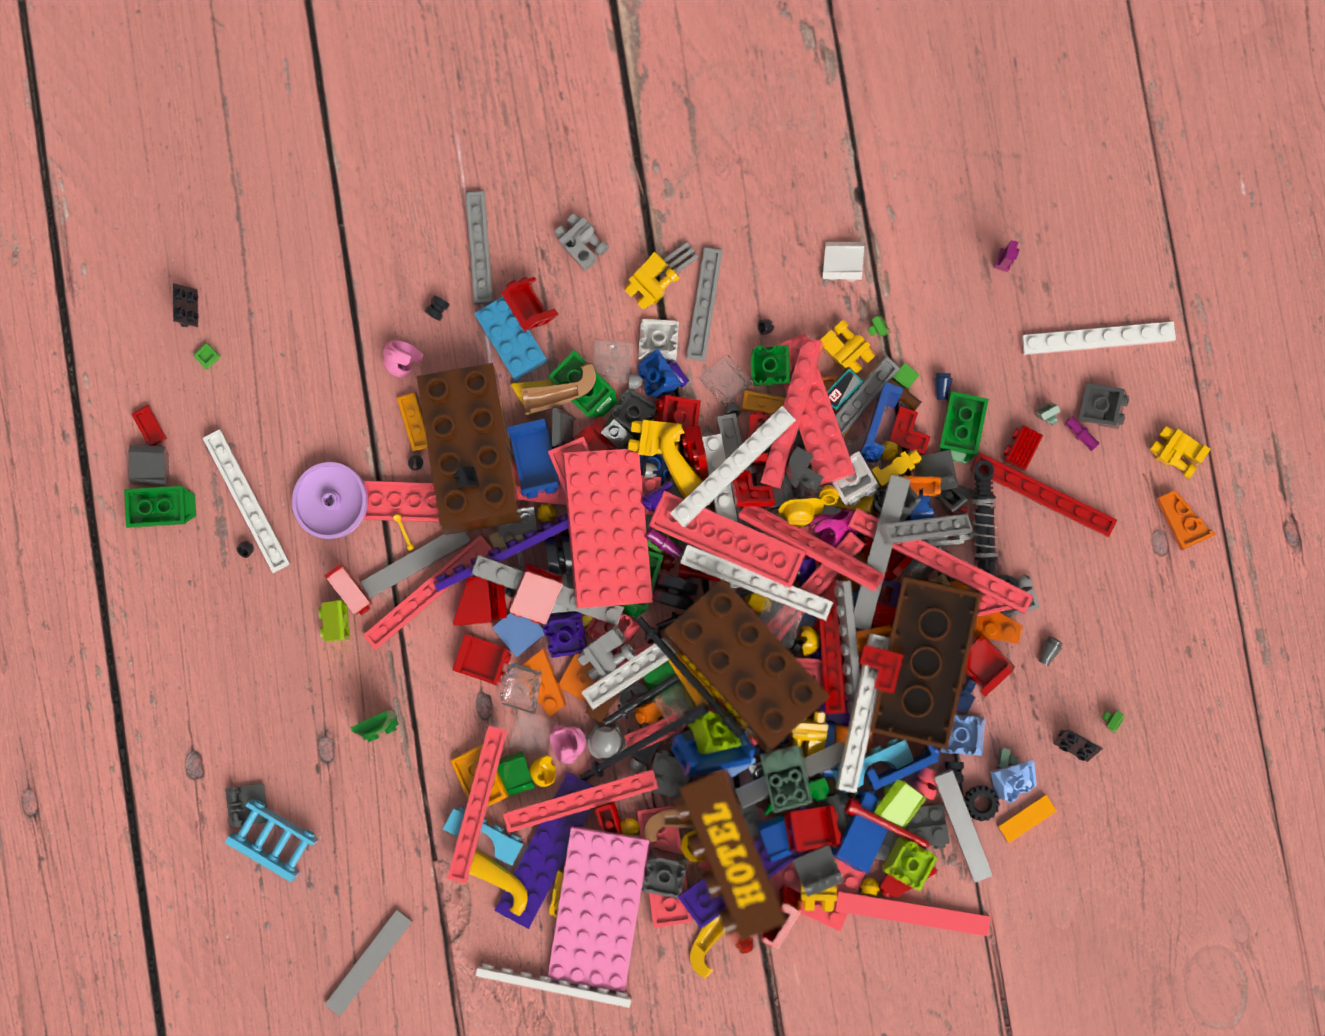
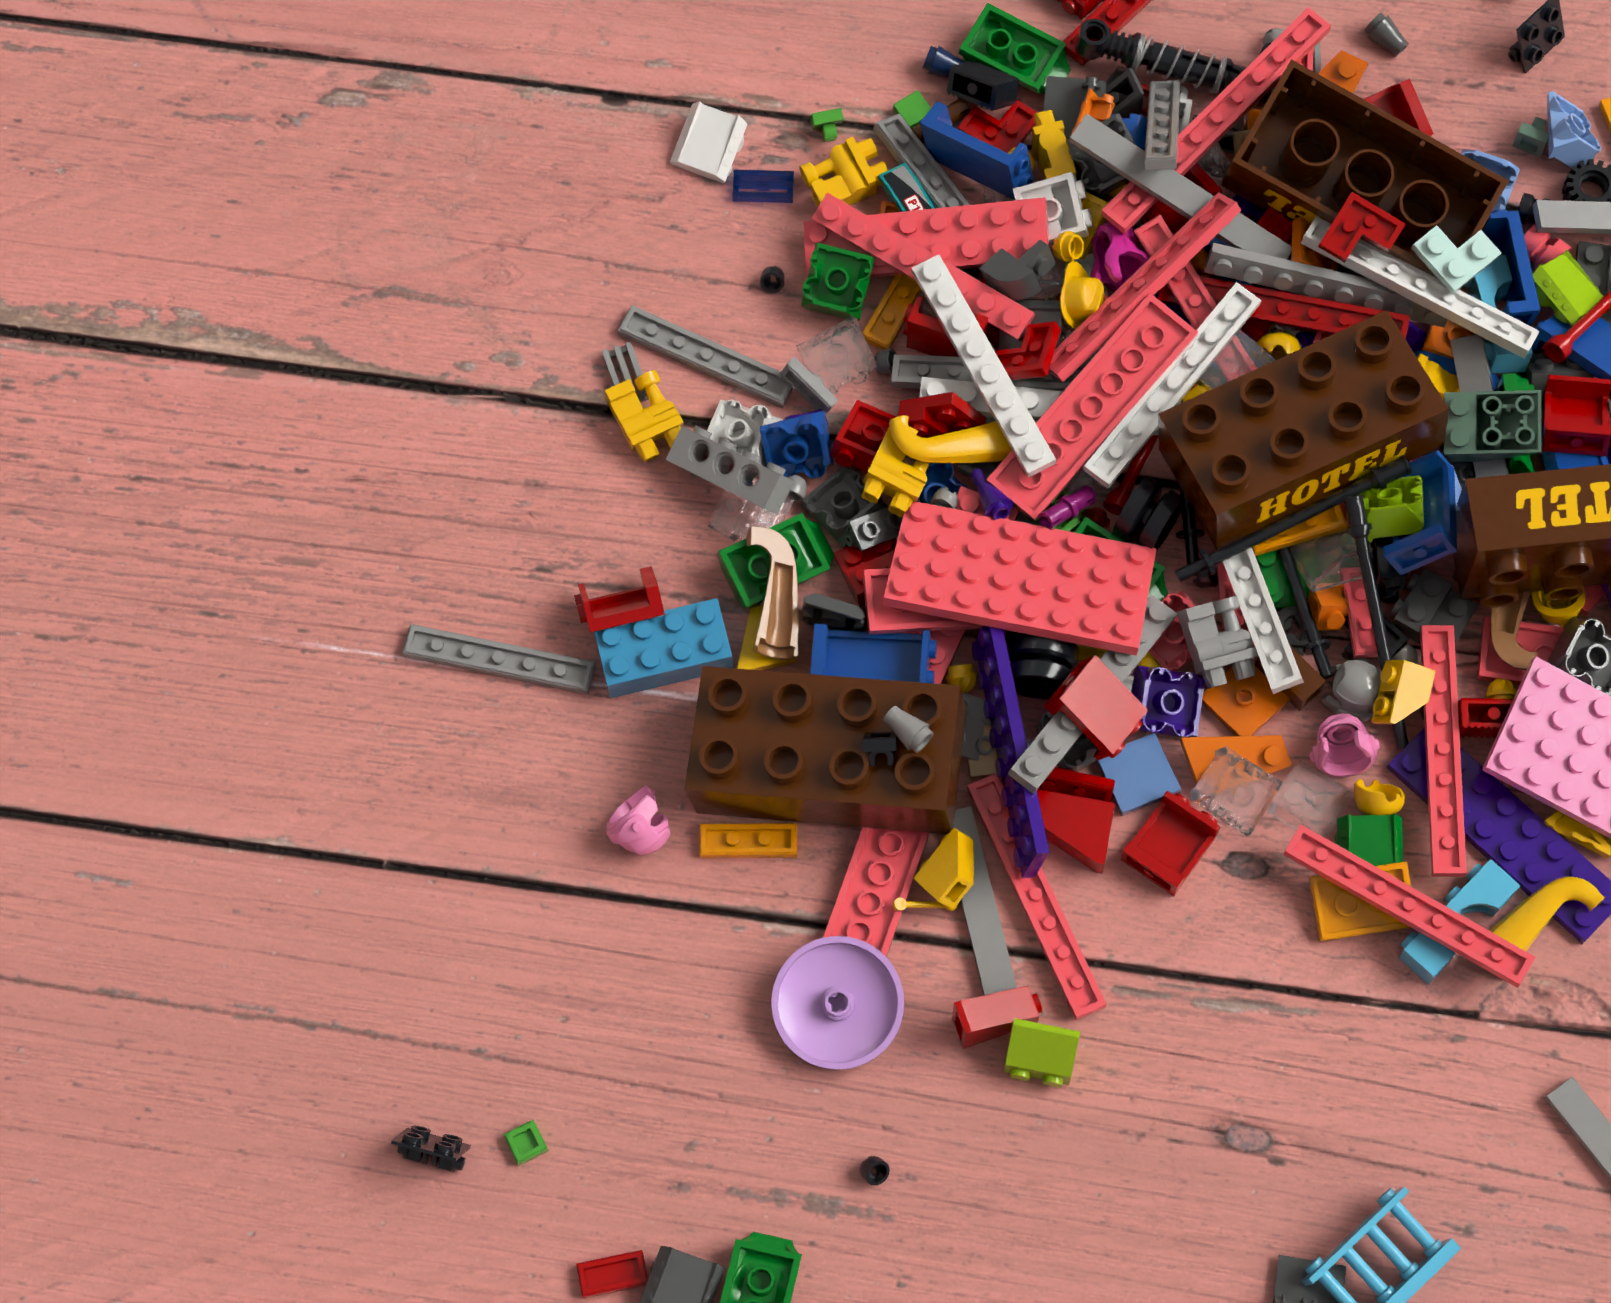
camera: 70 degrees left, 15 degrees down
(246, 501) = (793, 1144): white plate -> none
(378, 724) = (1236, 1026): green slope -> none
(419, 462) = (819, 850): black hinge -> none
(423, 539) = (949, 869): none -> yellow slope
(436, 308) = (575, 748): black wheel -> none
(476, 491) = (909, 729): none -> light grey cone
(575, 241) = (541, 509): light grey hips -> none
(606, 768) = (1401, 691): none -> yellow slope
(631, 327) = (689, 454): none -> light grey brick
(700, 370) = (809, 385): none -> light grey plate
(830, 317) = (763, 181): none -> clear blue tile
(880, 729) = (1453, 264): none -> light aqua plate
(930, 412) = (982, 85): none -> black brick

